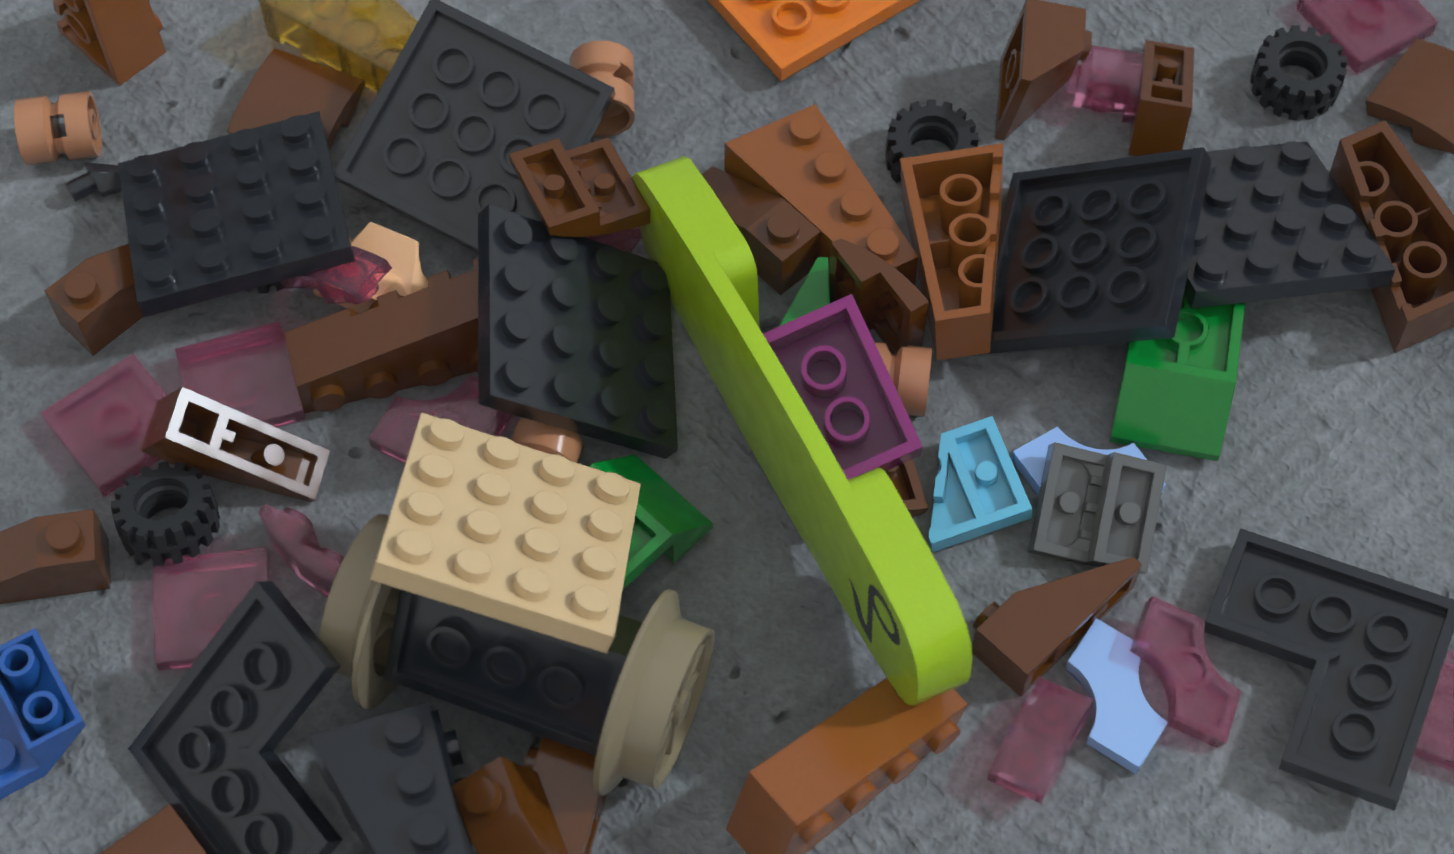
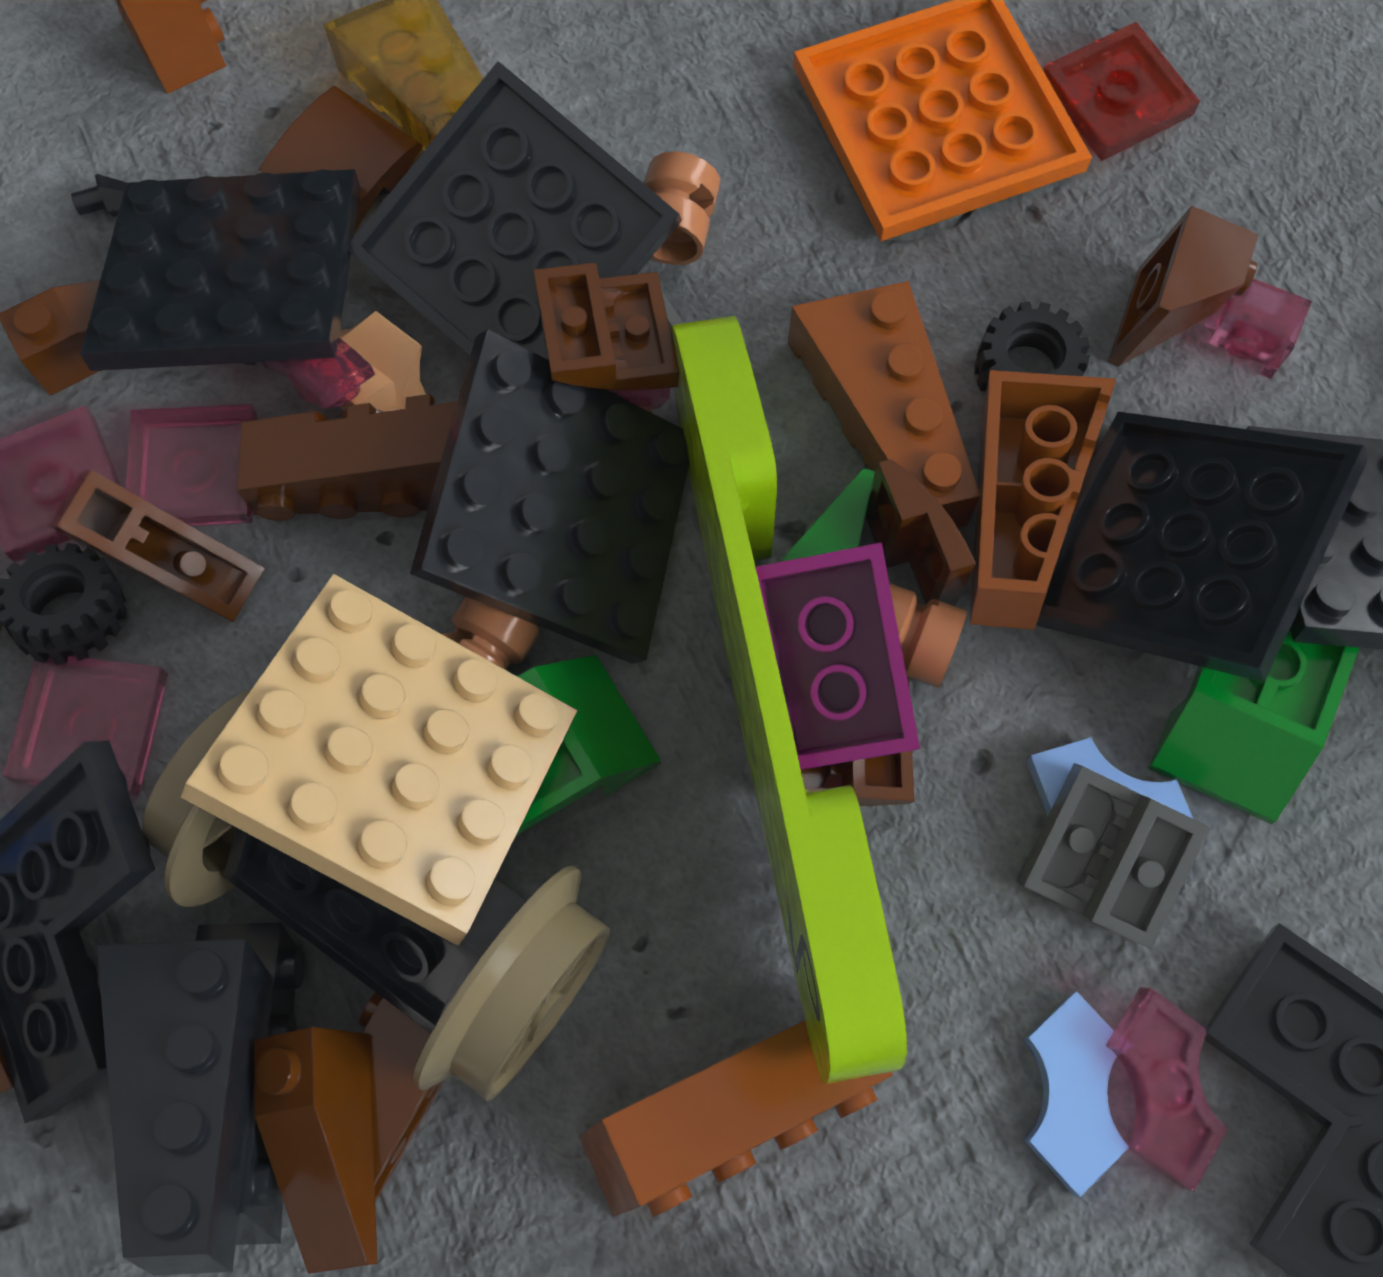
camera: 15 degrees right, 10 degrees up
(40, 130) = (76, 128): nougat wheel -> none
(298, 546) = (189, 671): clear pink slope -> none
(397, 426) = (375, 563): clear pink tile -> none
(777, 234) = (808, 413): reddish brown slope -> none
(974, 486) = (975, 788): medium azure wing -> none
(1039, 740) = (969, 1132): clear pink slope -> none
(1045, 621) = (1010, 985): reddish brown slope -> none
(1163, 99) = (1322, 366): reddish brown slope -> none

